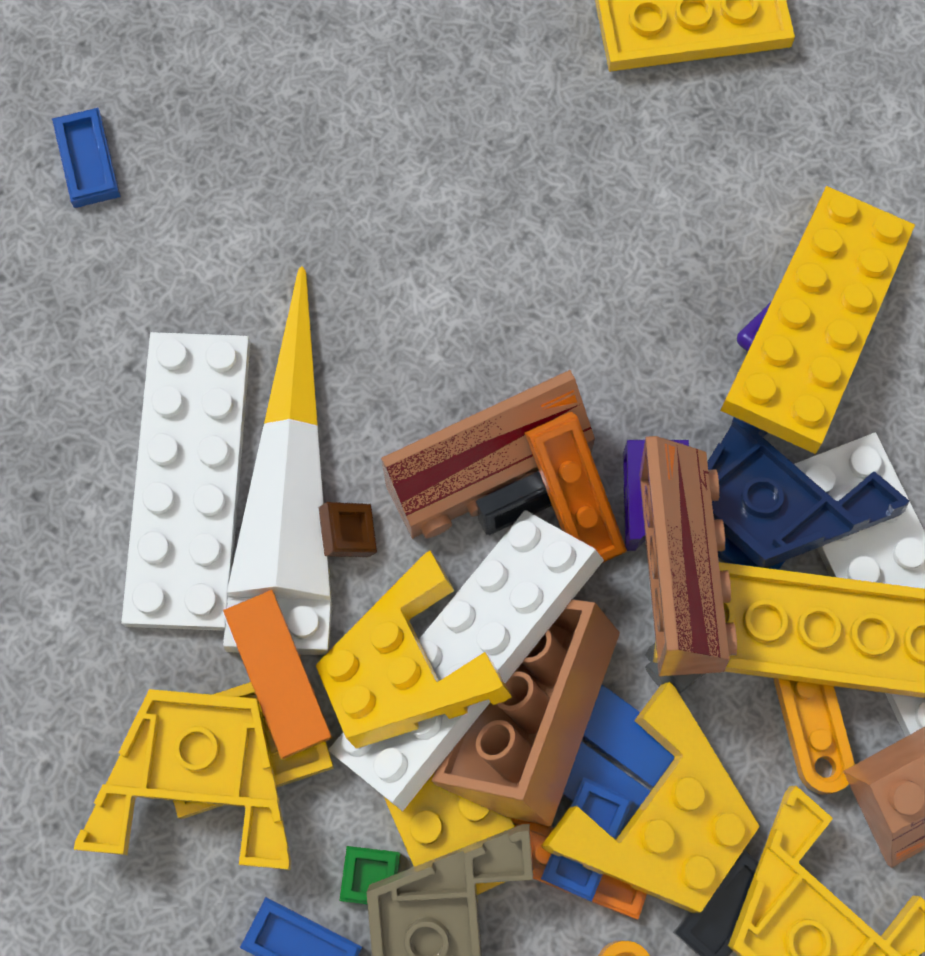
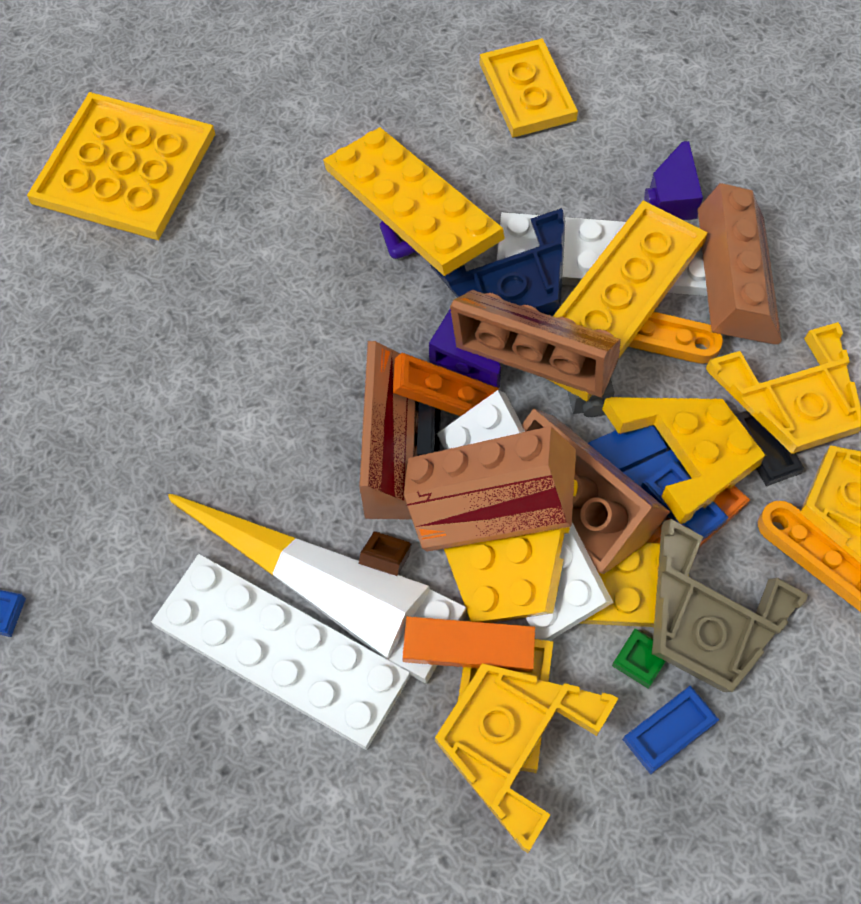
camera: 60 degrees left, 10 degrees down
(455, 607) = (491, 489): none -> nougat slope

